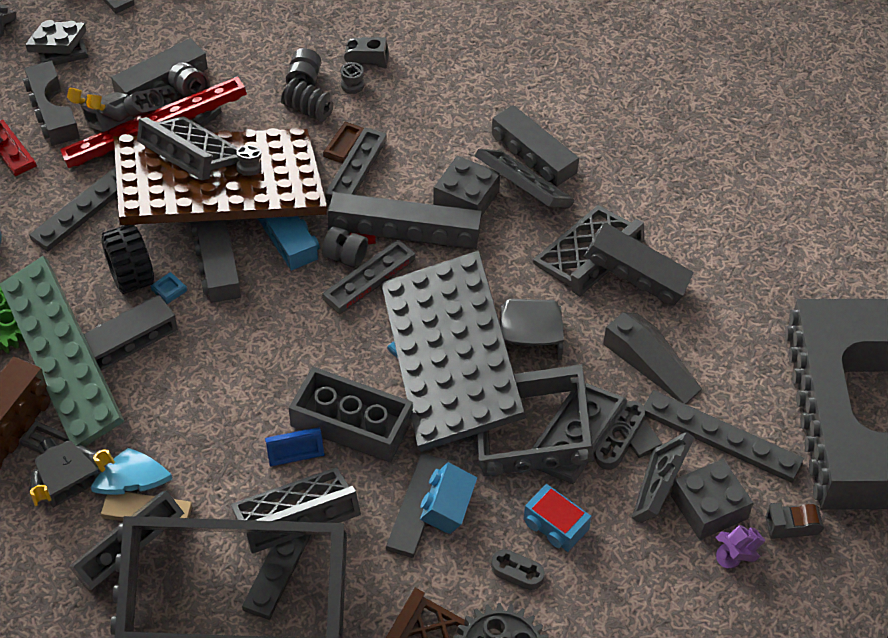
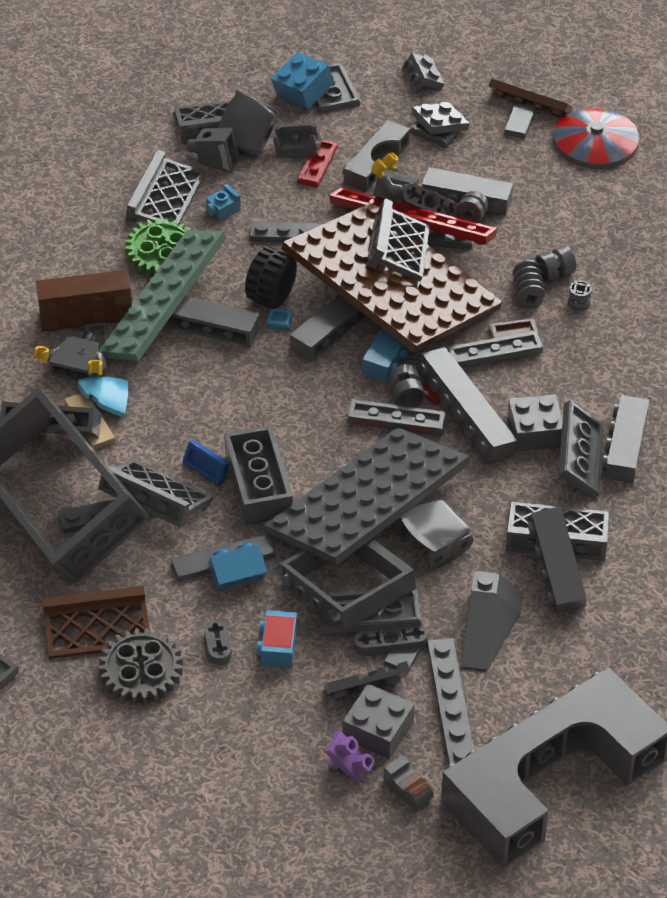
camera: 55 degrees right, 5 degrees down
(248, 160) = (412, 278): dark grey wheel -> none
(367, 50) = (619, 289): dark grey leg -> none

